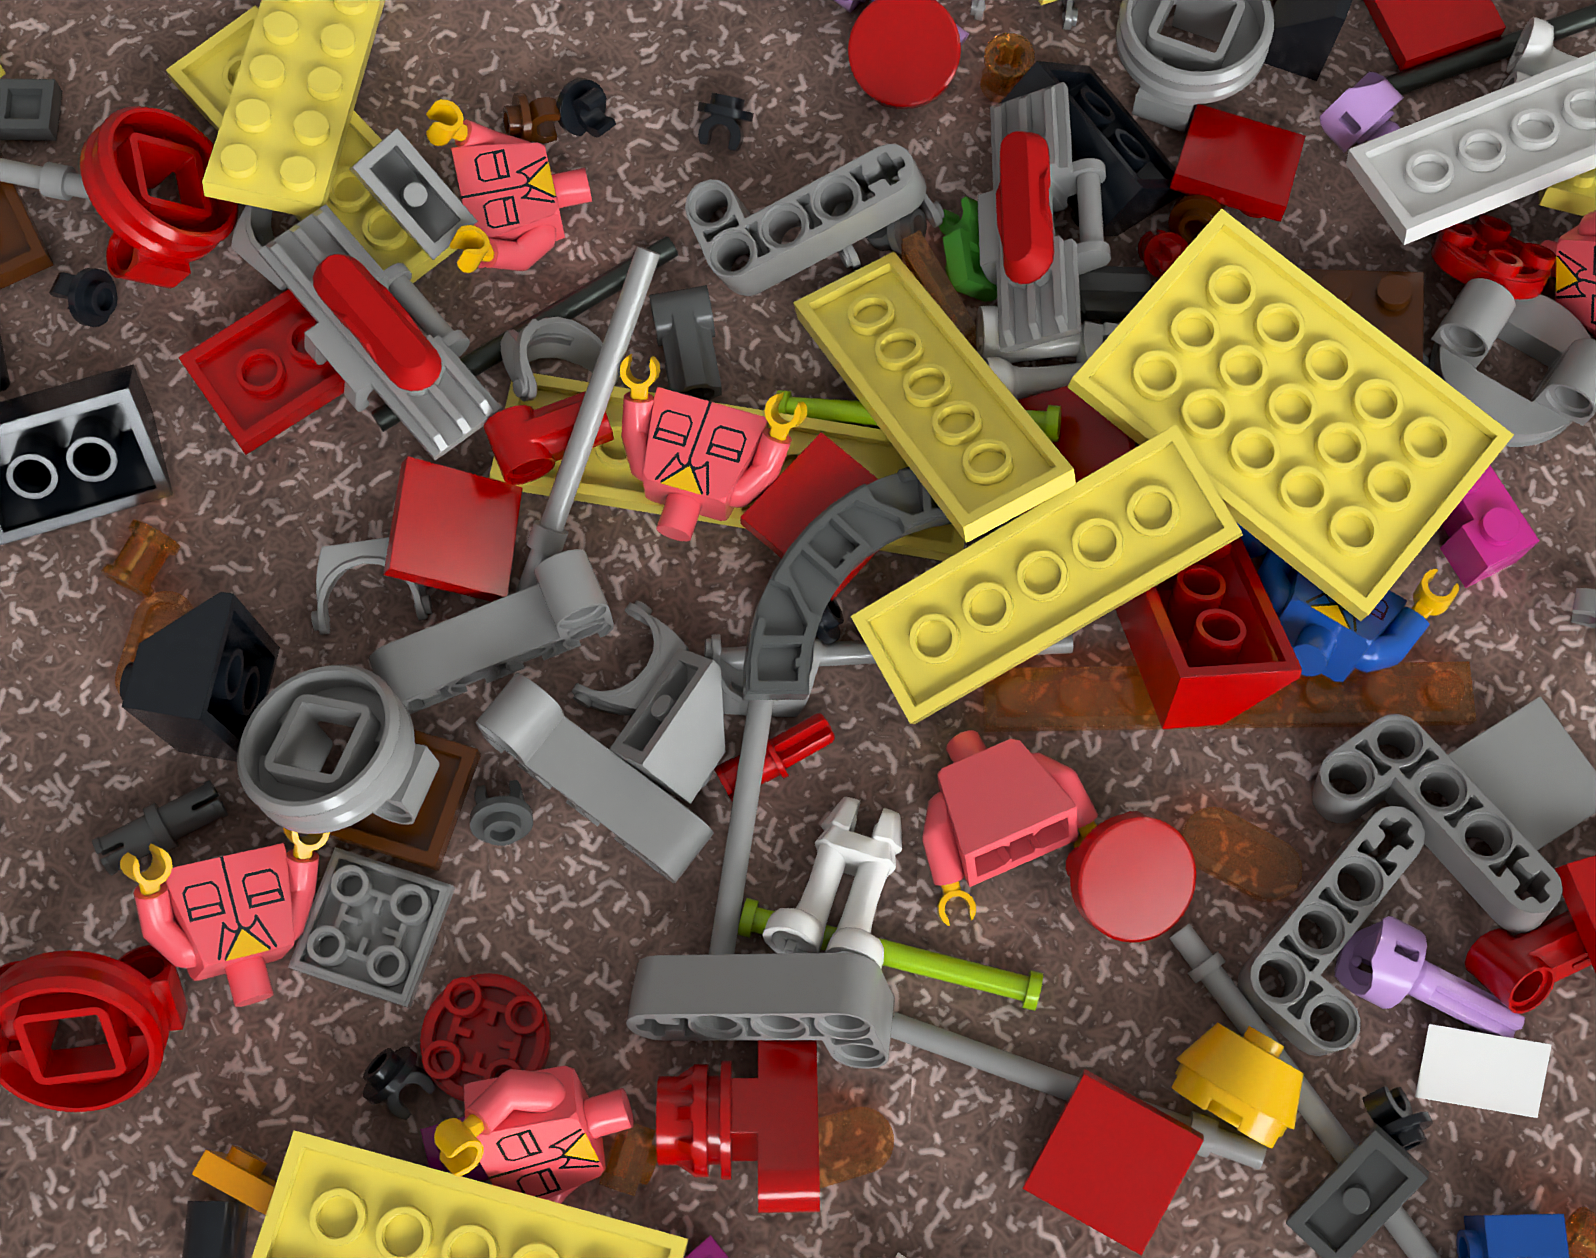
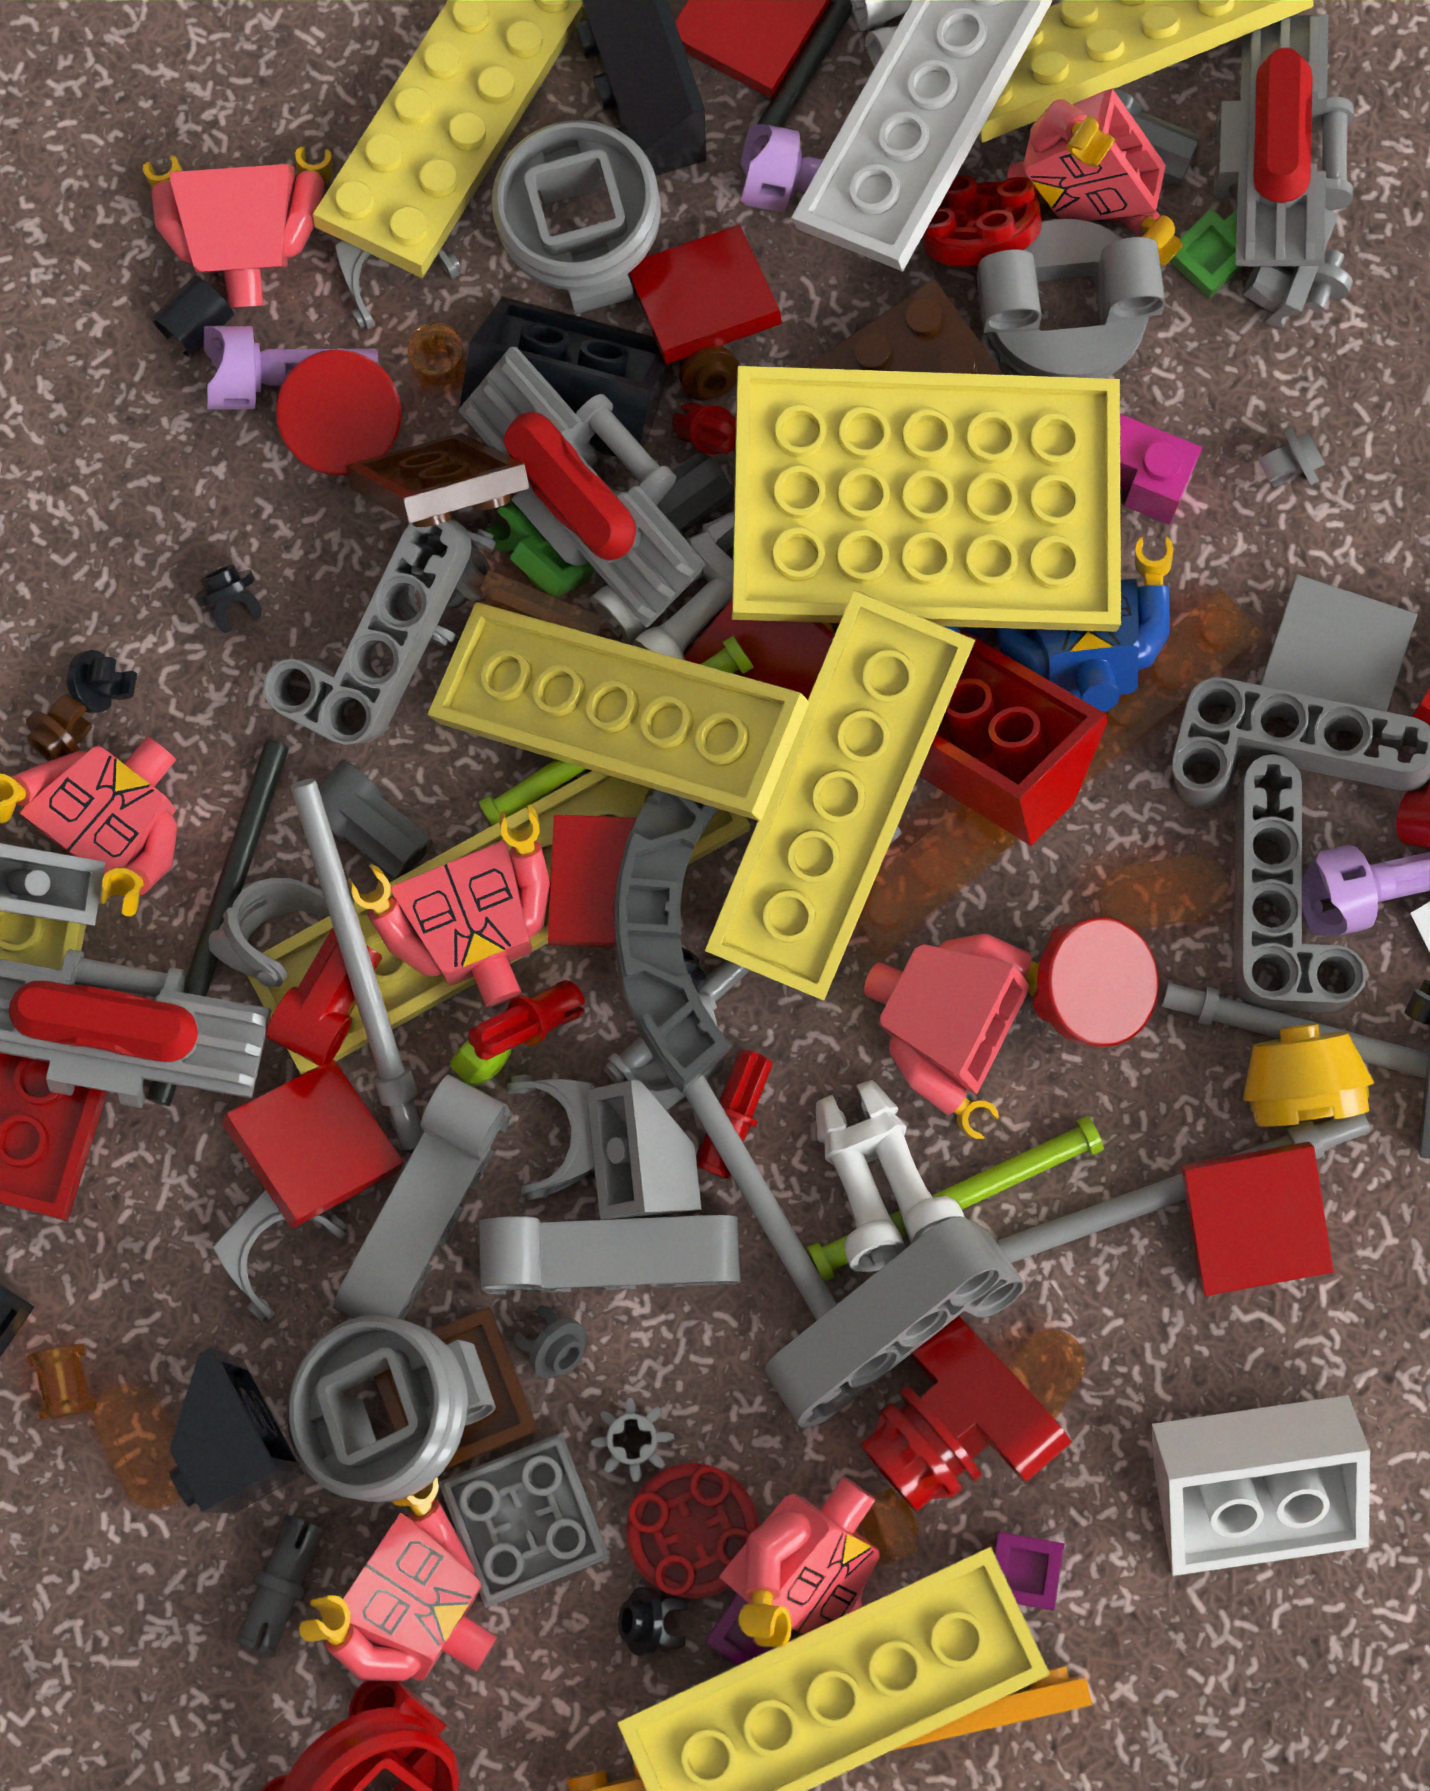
camera: 35 degrees left, 5 degrees up
(497, 914) = (618, 1427): none -> light grey gear
(627, 566) = (476, 1070): none -> lime tile
(679, 565) = (527, 1020): none -> red axle
(917, 129) = (437, 478): none -> reddish brown plate

